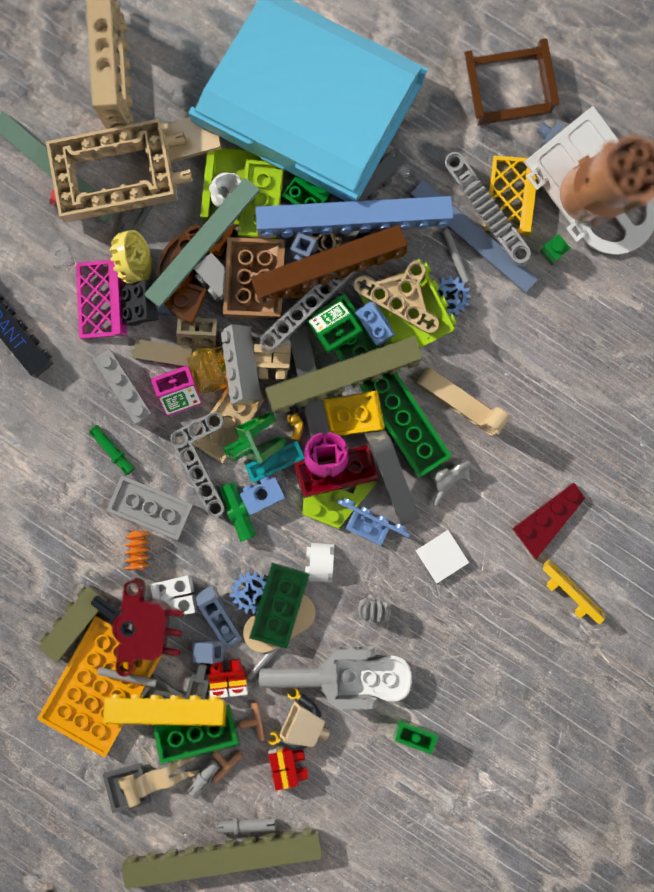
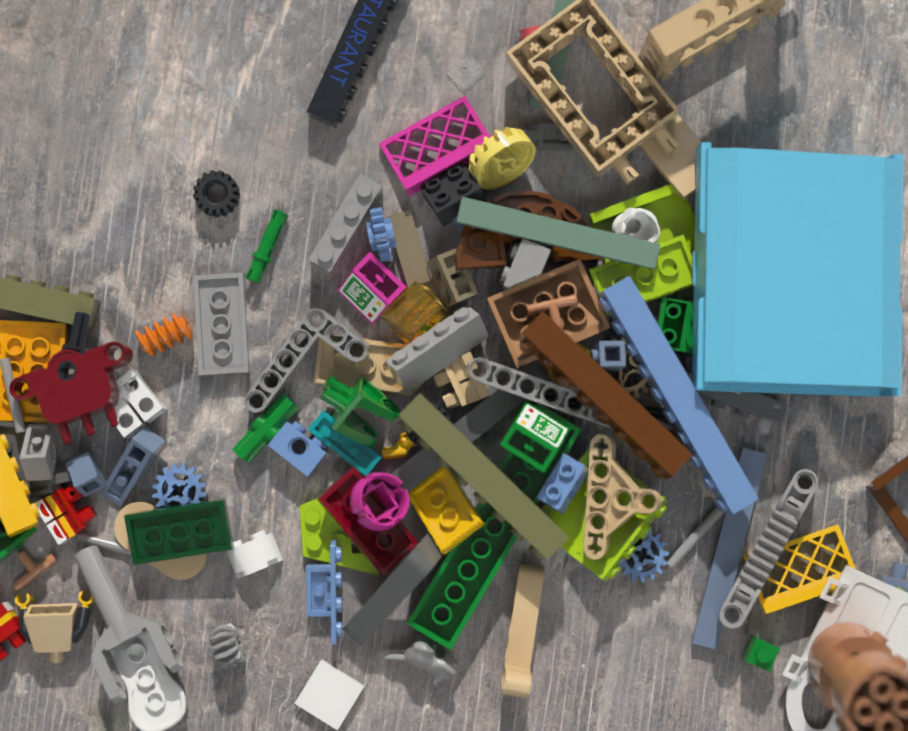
camera: 65 degrees right, 0 degrees up
(49, 458) = (209, 180): none -> black tyre
(142, 365) = (381, 234): none -> medium blue gear
(175, 676) = (39, 452): none -> light grey brick
(250, 271) = (552, 307): none -> nougat piece

